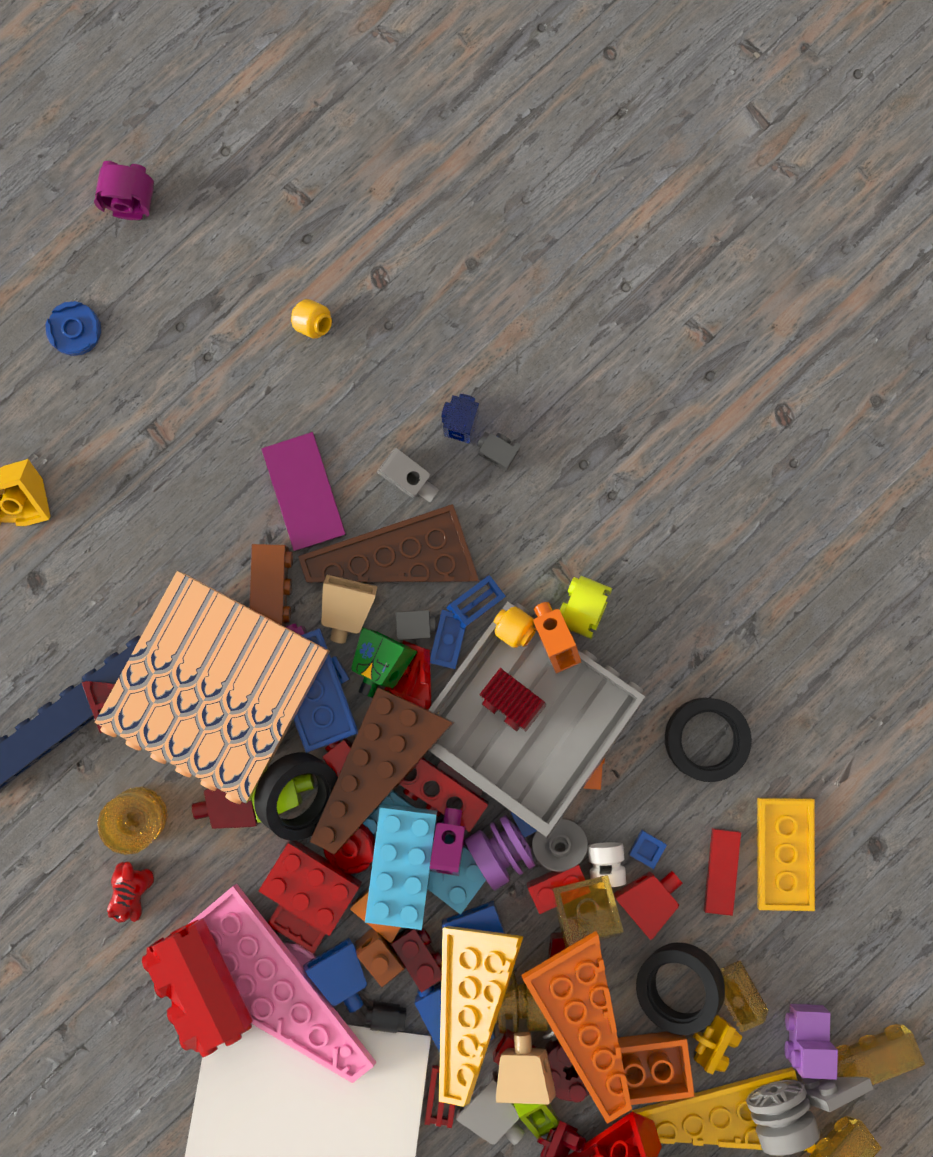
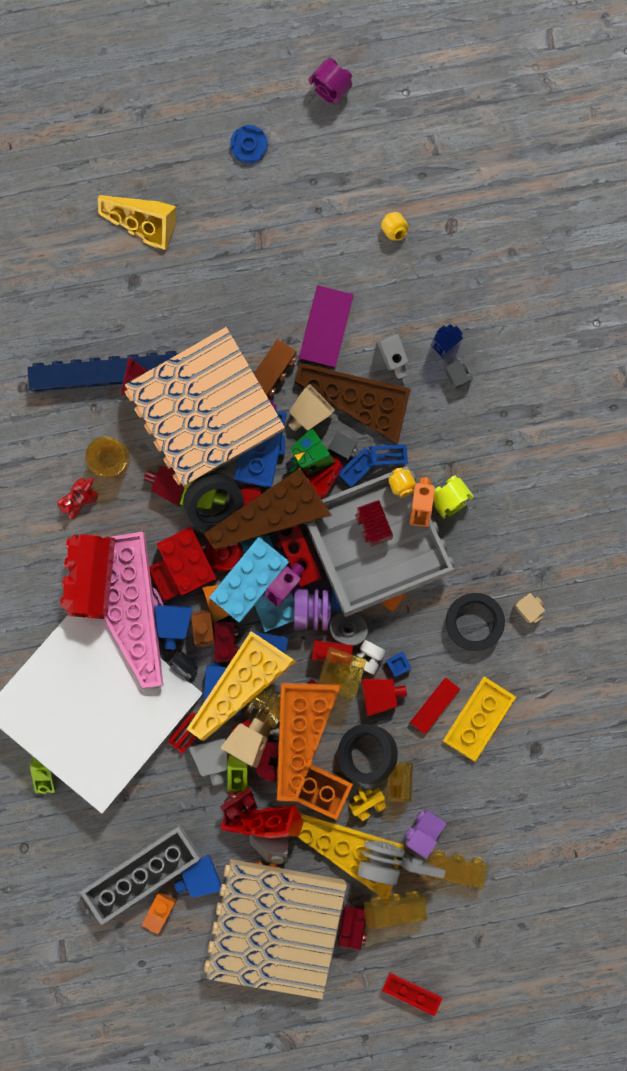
camera: 30 degrees right, 0 degrees up
(764, 680) = (530, 608): none -> tan brick

